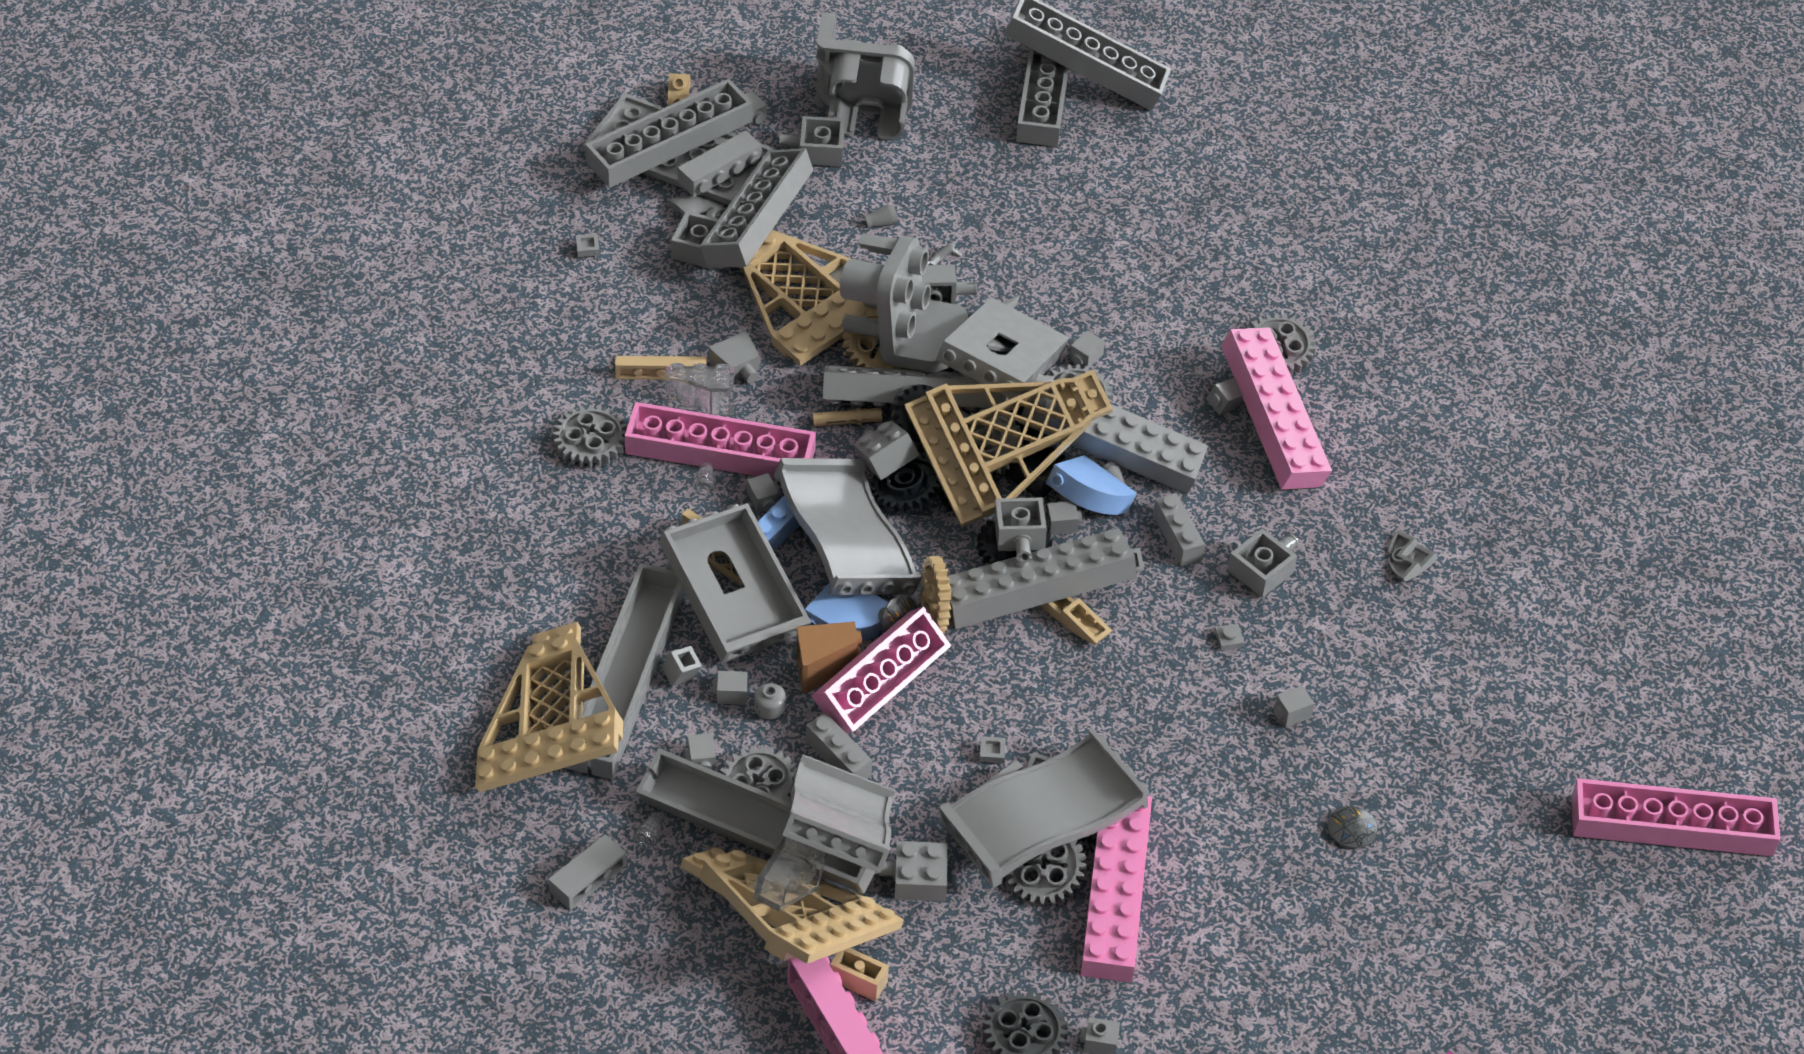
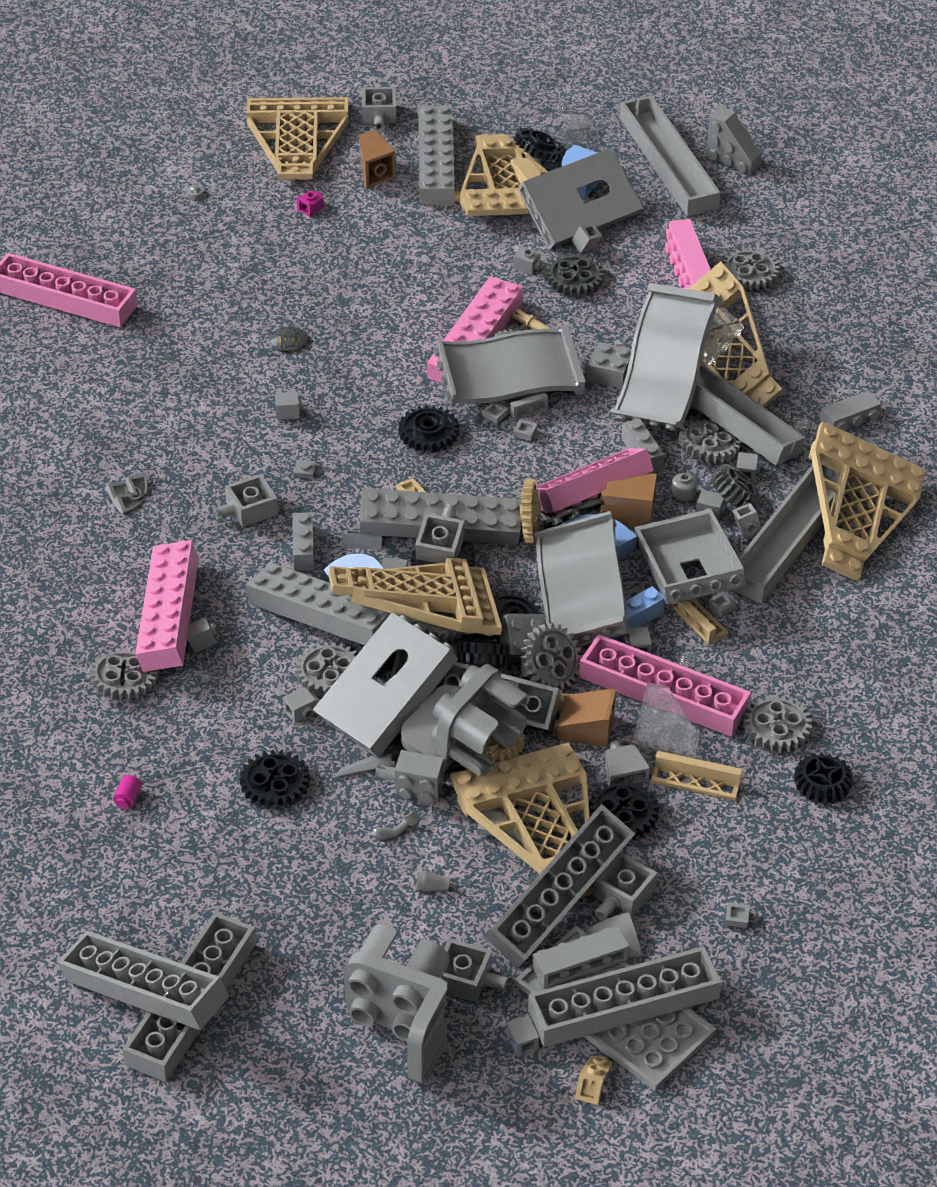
camera: 160 degrees left, 5 degrees down
(531, 387) = (824, 773): none -> black gear
(719, 694) = (735, 486): none -> dark grey gear
(723, 314) = (629, 804): none -> black gear
(790, 390) = (586, 717): none -> medium nougat slope
(847, 431) = (551, 656): none -> light grey gear
(1042, 925) = (528, 320): none -> tan pin
(1089, 280) = (274, 779): none -> black gear
(1111, 715) = (428, 429): none -> black gear
(1204, 235) = (127, 792): none -> dark pink brick

